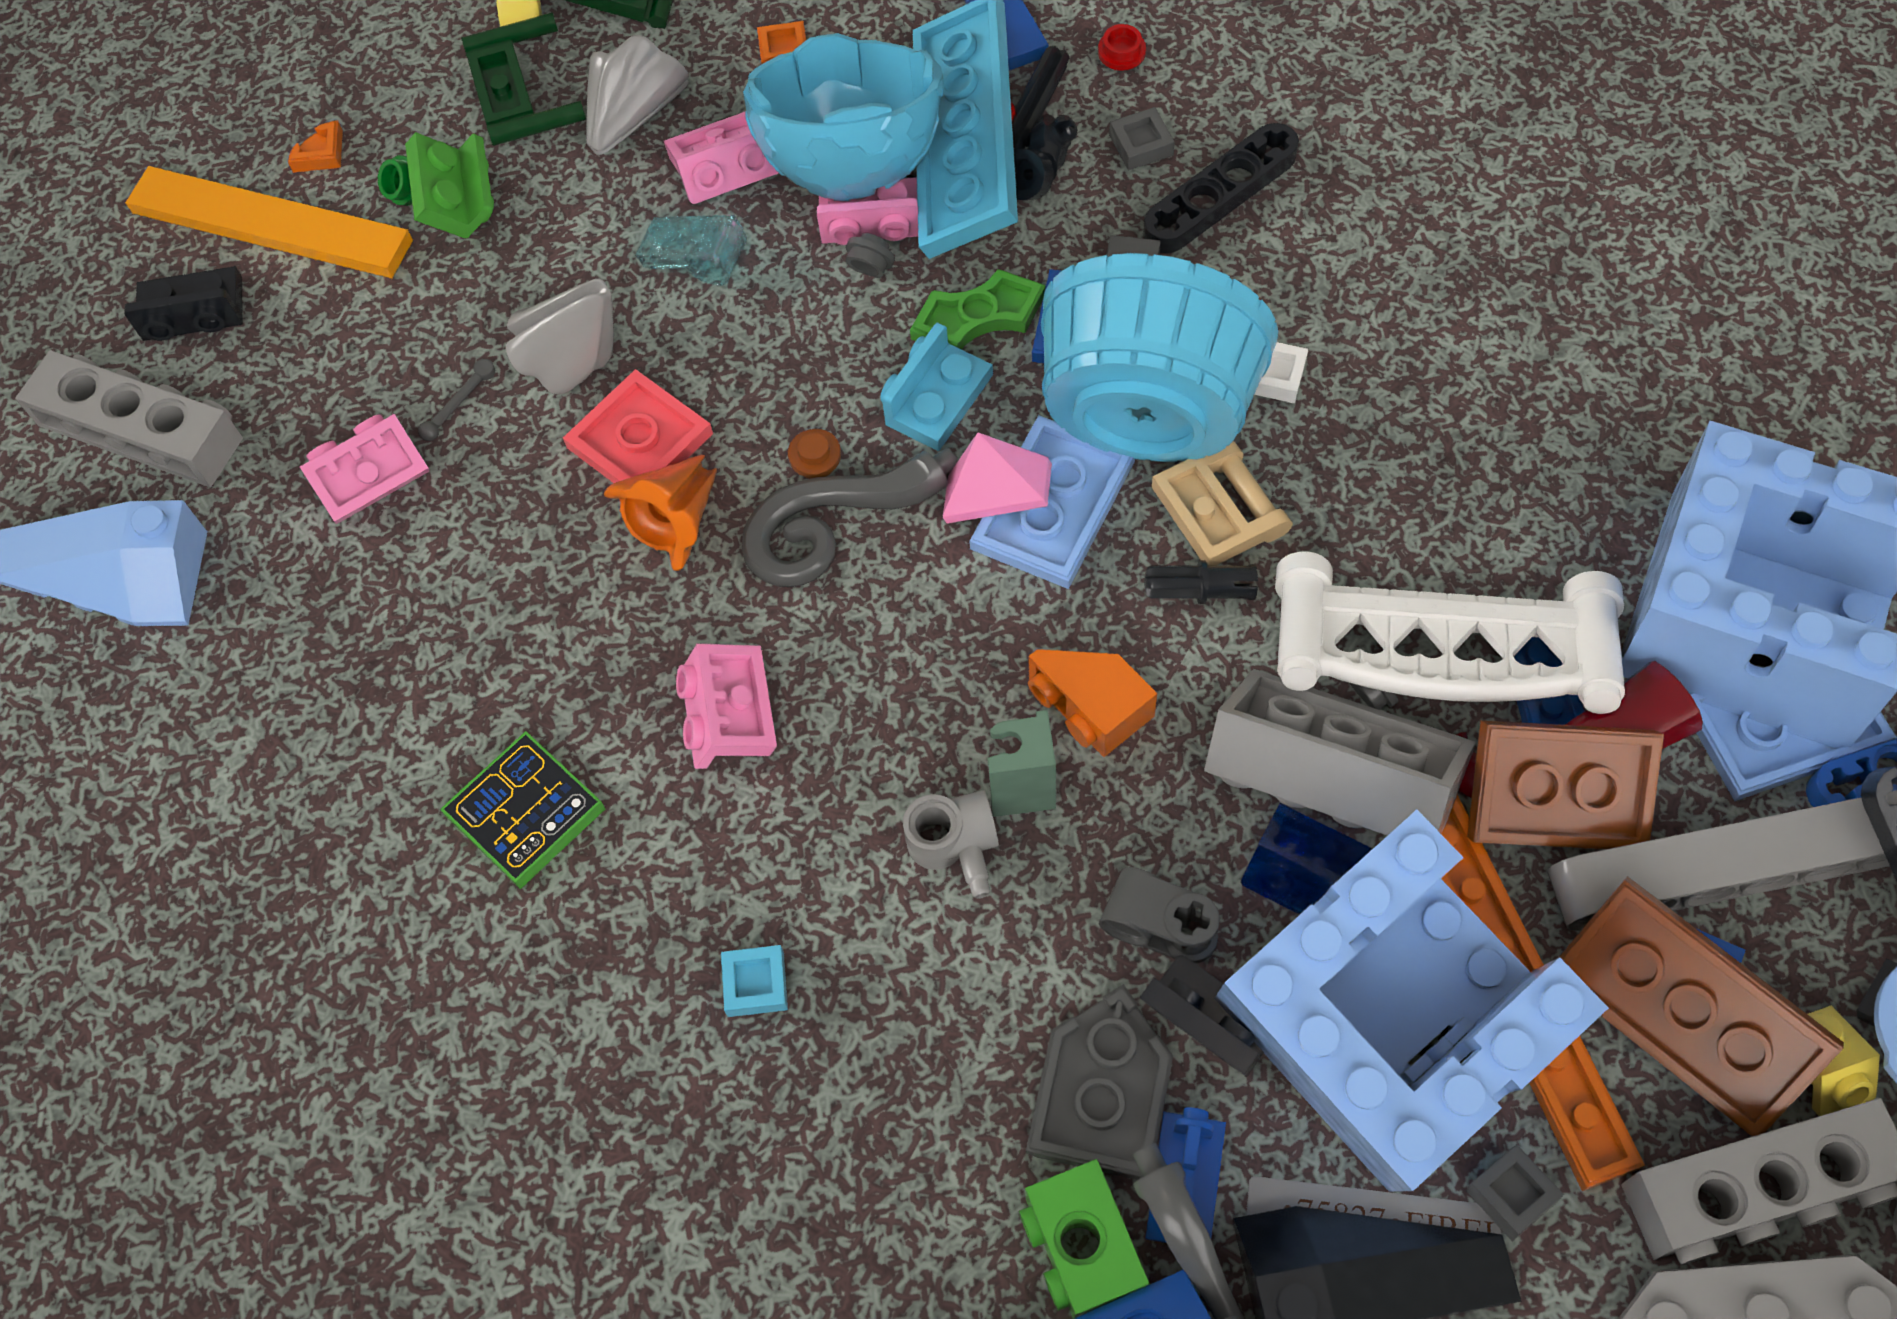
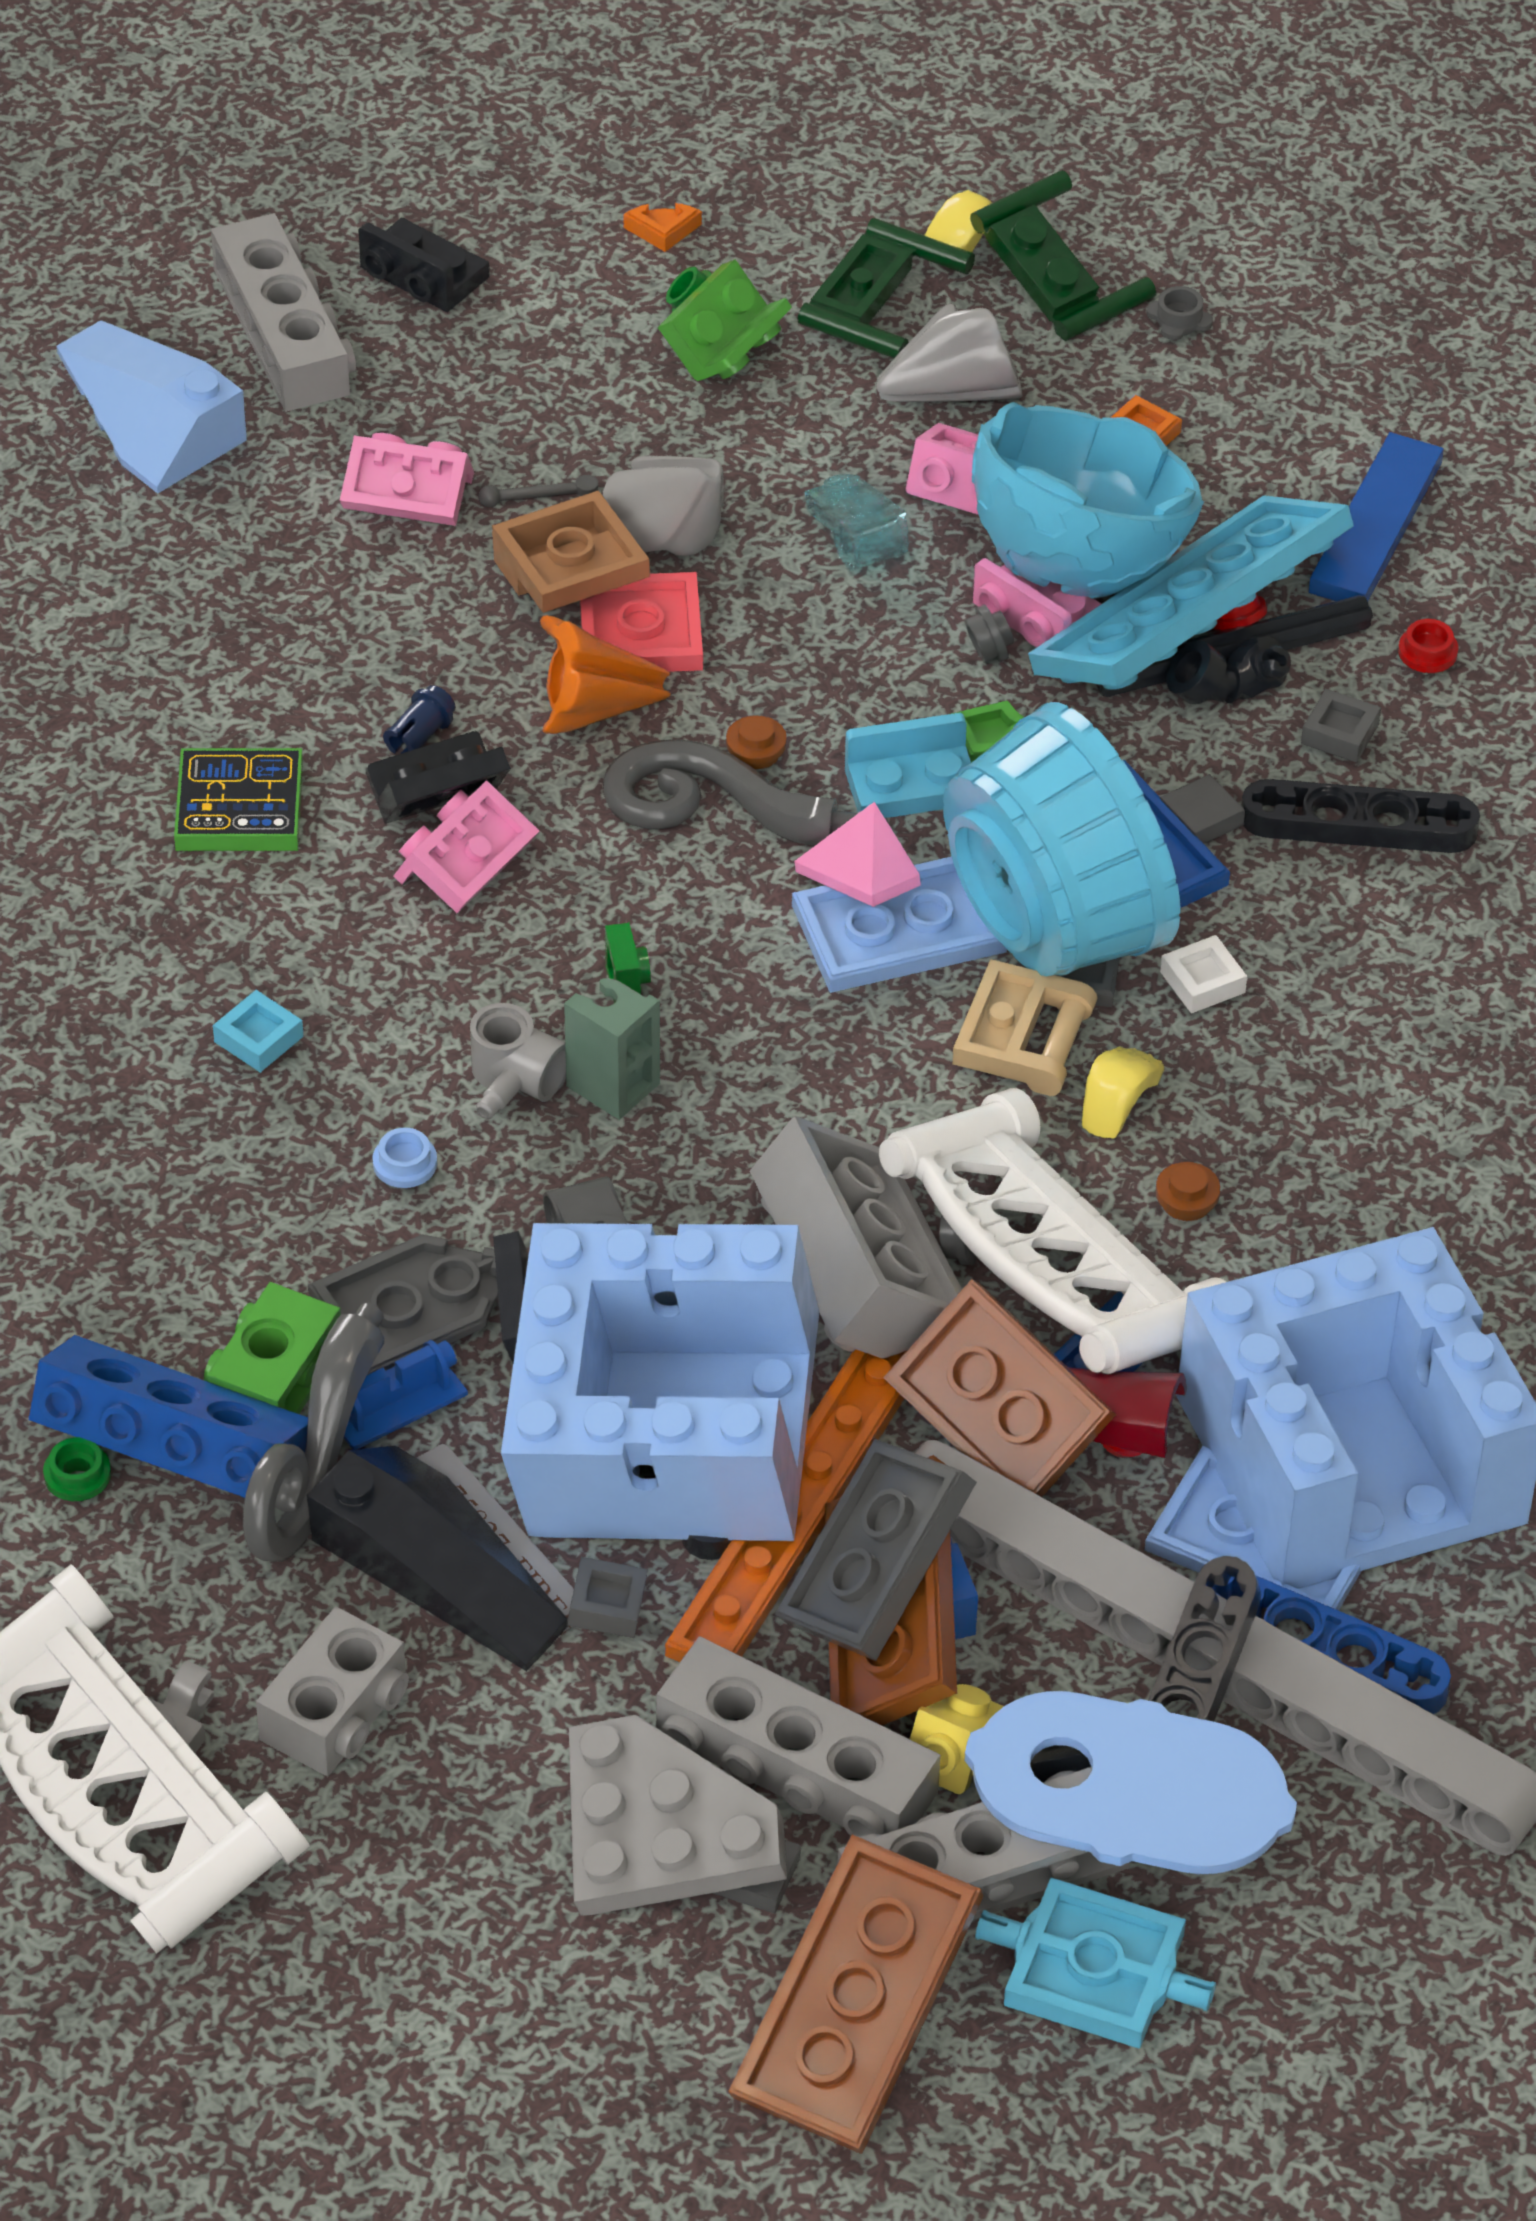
camera: 40 degrees right, 15 degrees down
(270, 221) = (558, 251): light orange tile -> none
(544, 427) = (568, 552): none -> medium nougat plate
(580, 625) = (429, 711): none -> dark blue pin
(647, 669) = (434, 774): none -> black bracket
(938, 694) = (624, 960): none -> green plate
(968, 982) = (404, 1158): none -> light blue plate
(1095, 693) = (741, 1063): orange slope -> none
(1200, 582) = (930, 1061): black axle -> none
(1328, 491) = (1114, 1087): none -> light yellow hair
(1449, 525) = (1187, 1190): none -> dark orange plate
(1664, 983) = (875, 1549): none -> dark grey tile

